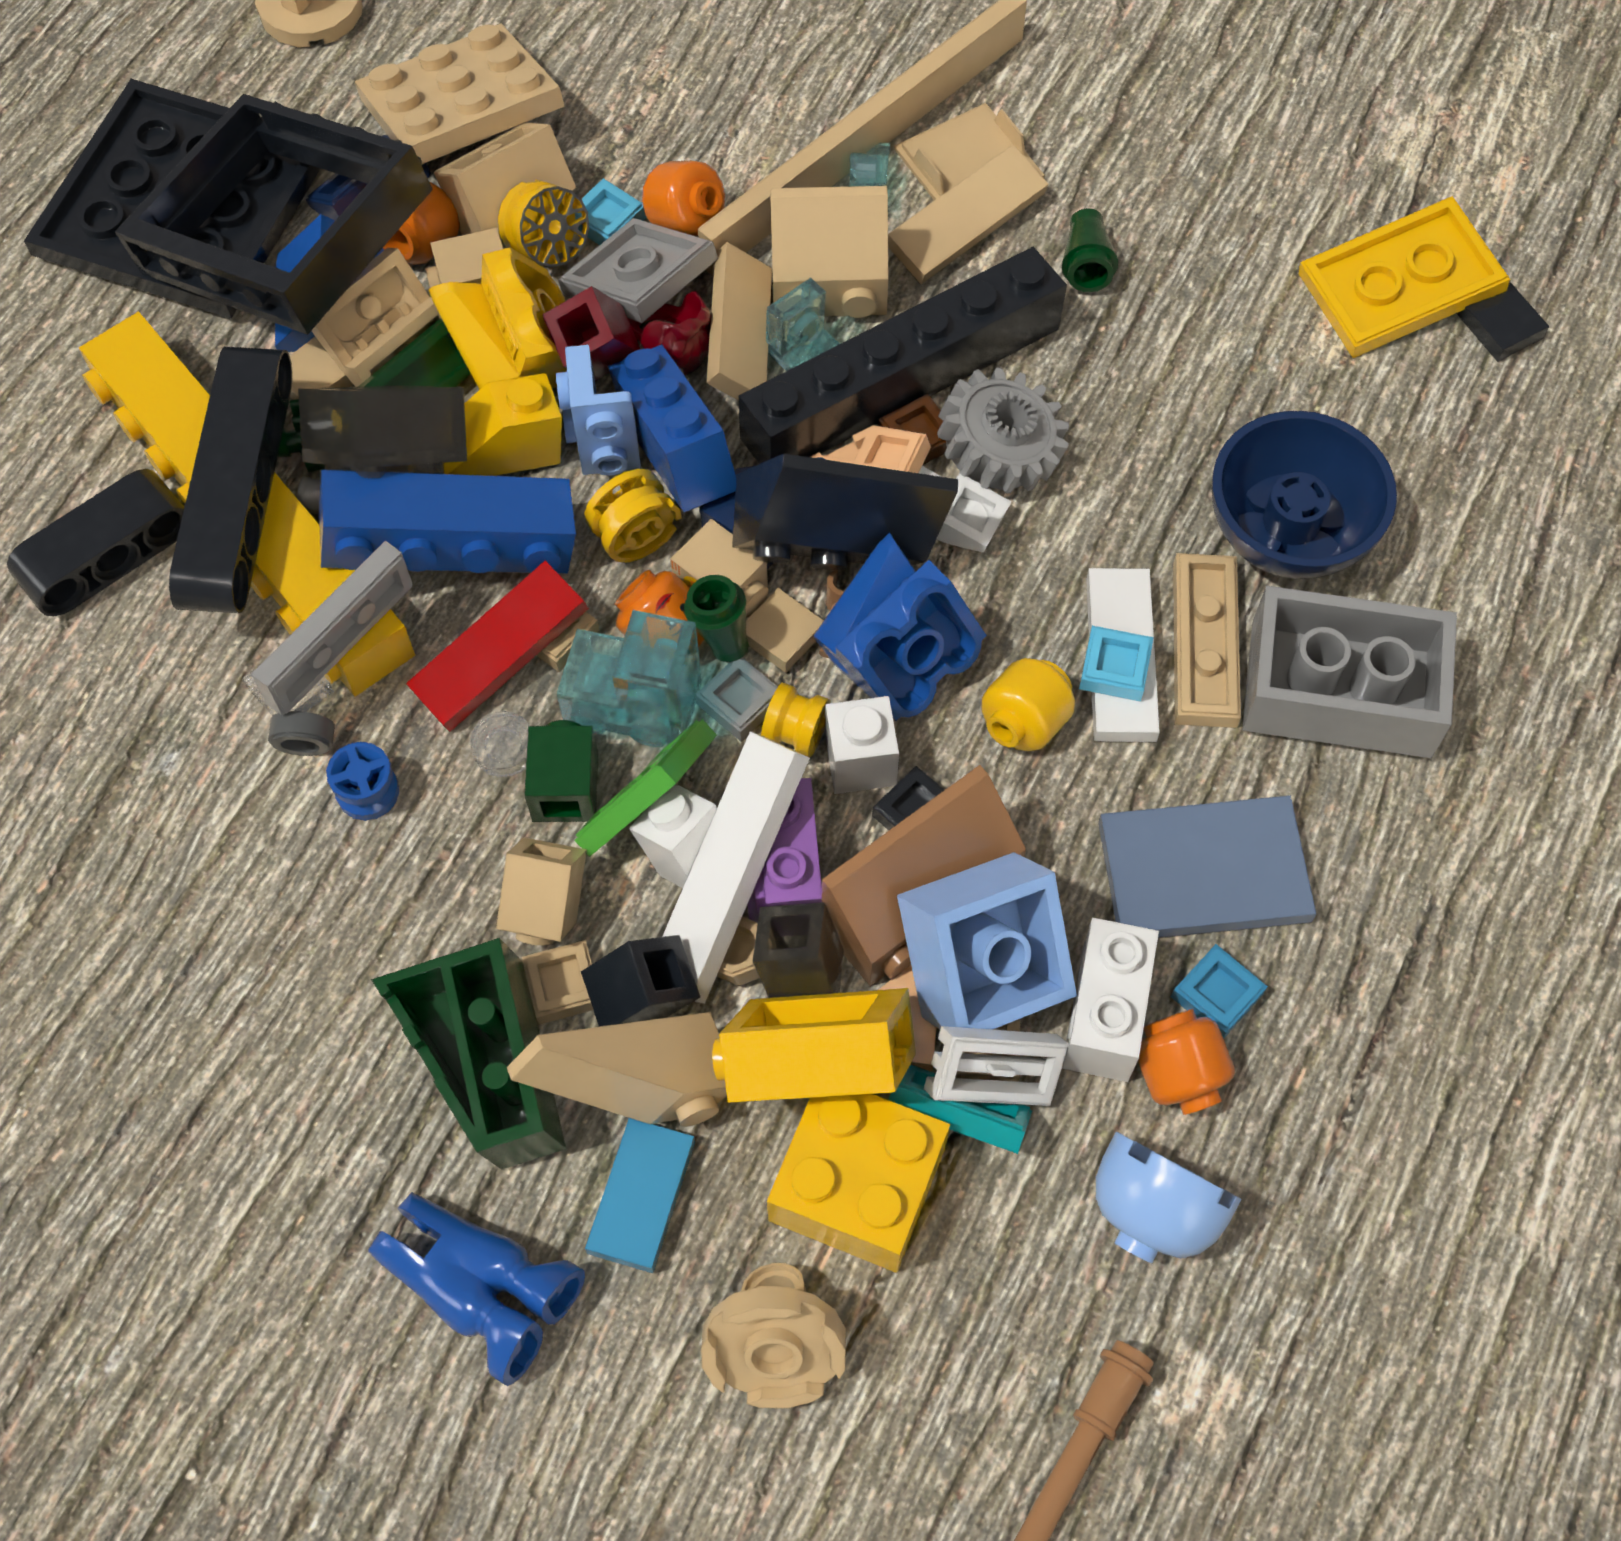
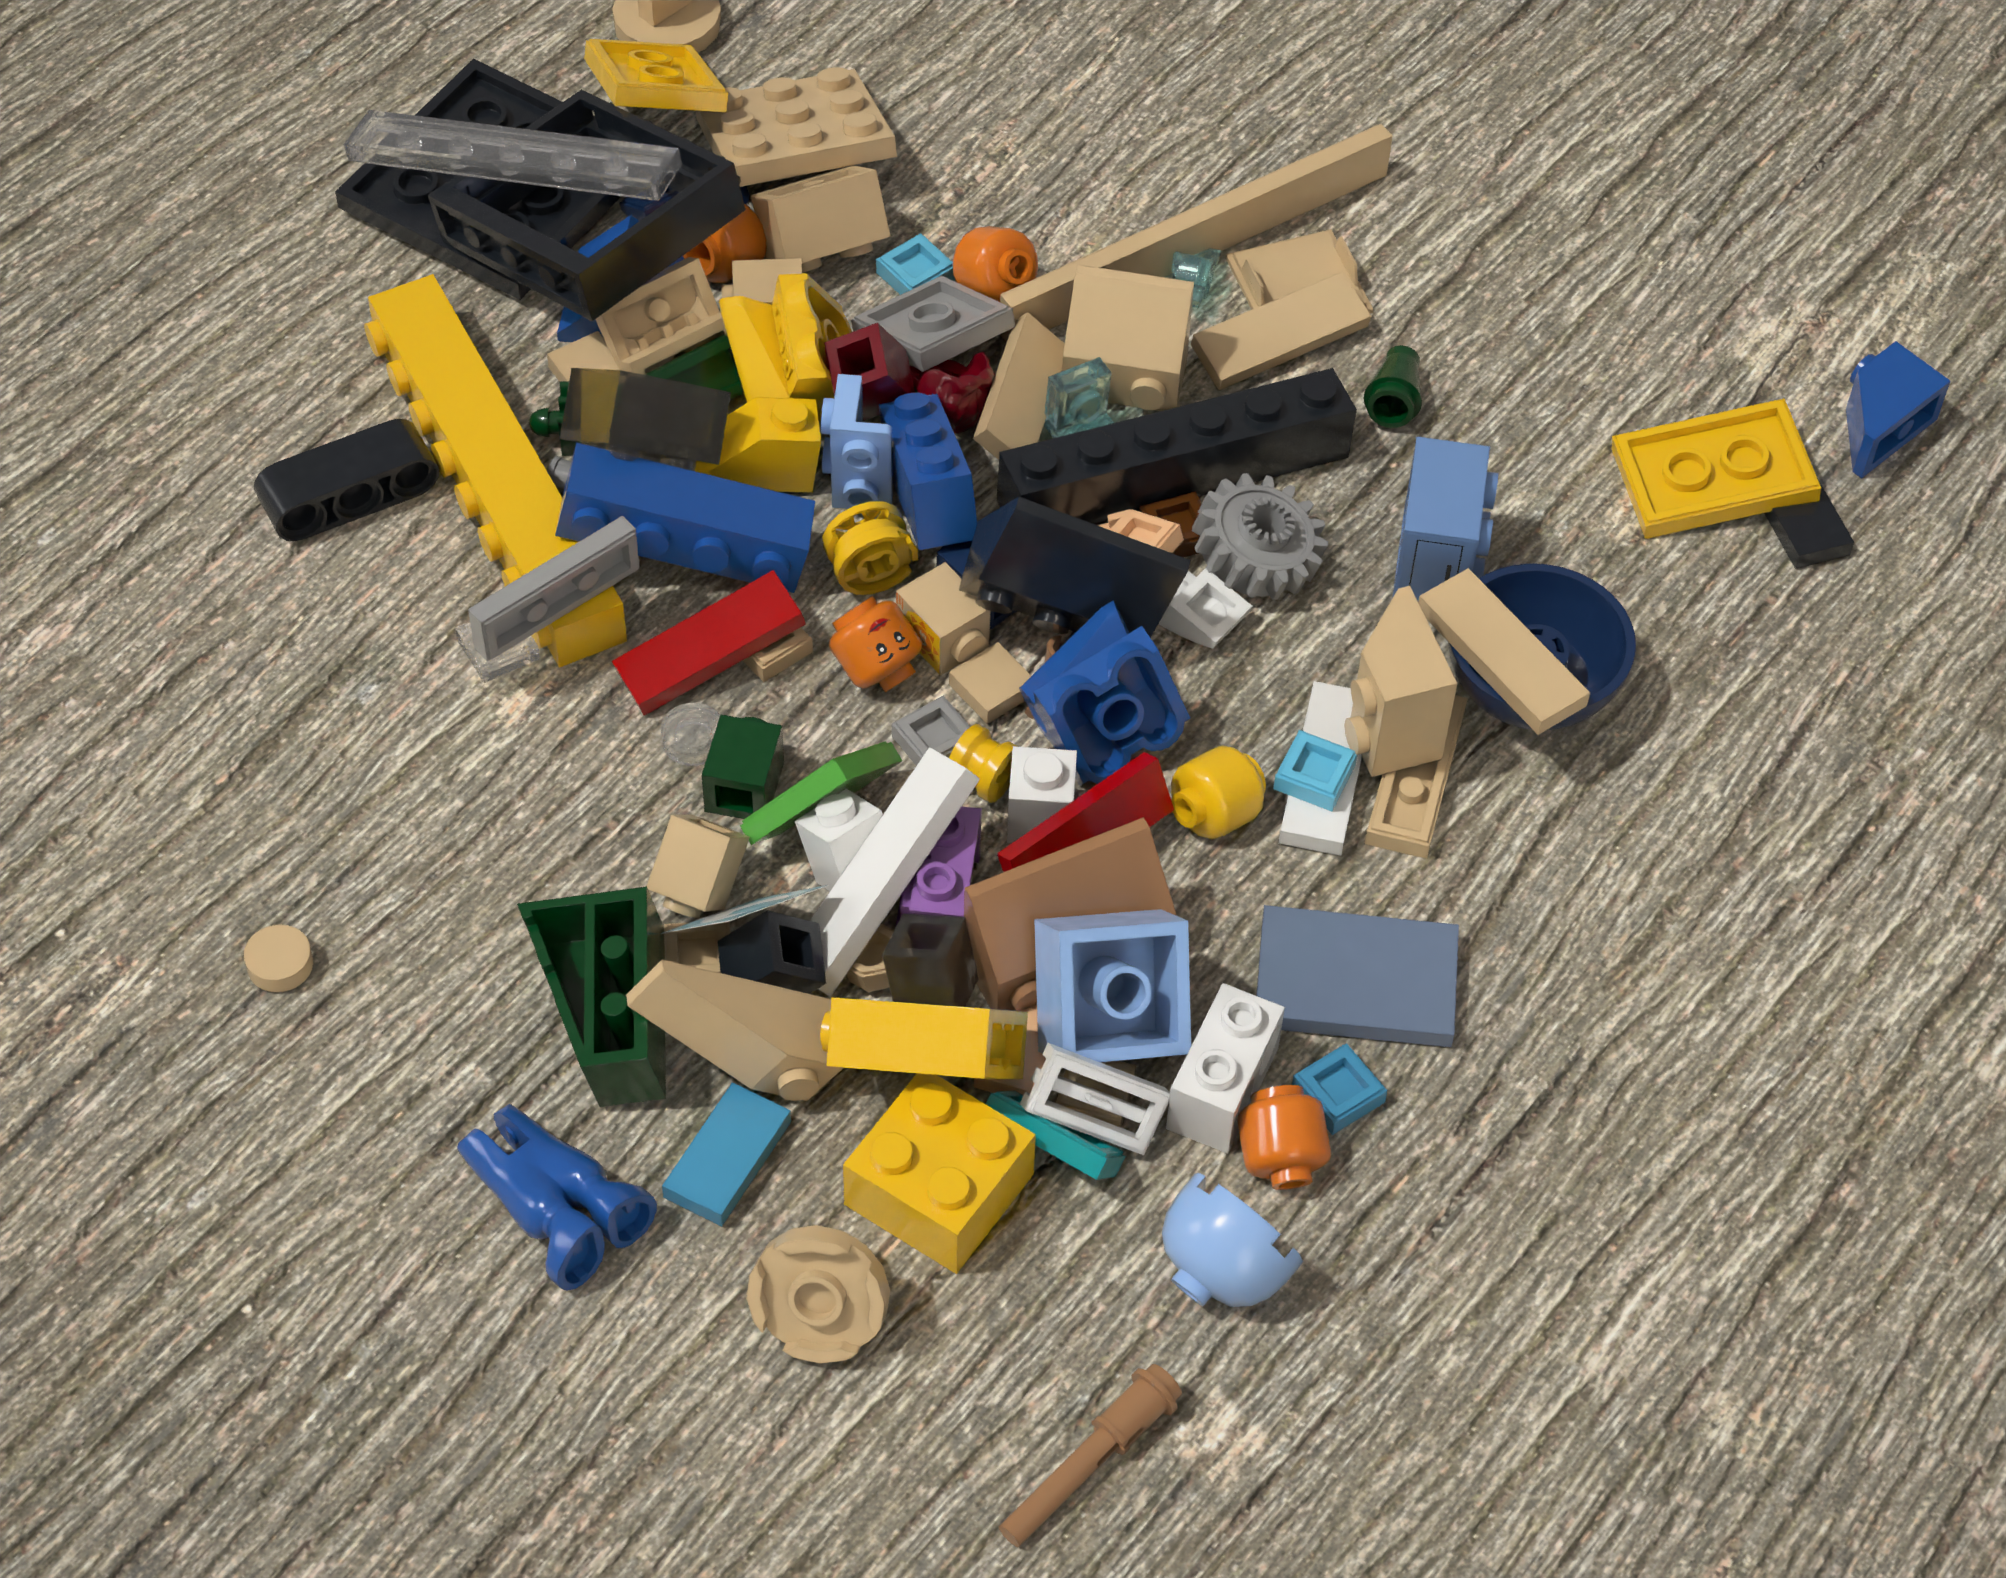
camera: 10 degrees right, 10 degrees down
(140, 1075) = (278, 958): none -> tan tile
(191, 175) = (514, 154): none -> clear tile
(231, 481) = (488, 439): black beam -> none
(301, 733) = (500, 685): dark grey tile -> none
(312, 65) = (655, 75): none -> yellow tile
(356, 766) = (549, 739): blue wheel -> none
(550, 235) = (848, 261): yellow wheel -> none
(601, 935) = (744, 909): none -> medium azure sticker
(635, 682) = (836, 695): clear light blue brick -> none
(719, 615) = (930, 648): dark green cone -> none
(919, 769) = (1121, 798): none -> red tile
(1177, 388) = (1445, 514): none -> medium blue brick
(1190, 570) = (1401, 692): none -> tan slope
(1275, 511) = (1503, 651): none -> tan tile
(1350, 672) = (1545, 819): light grey brick -> none
(1543, 182) = (1890, 404): none -> blue slope

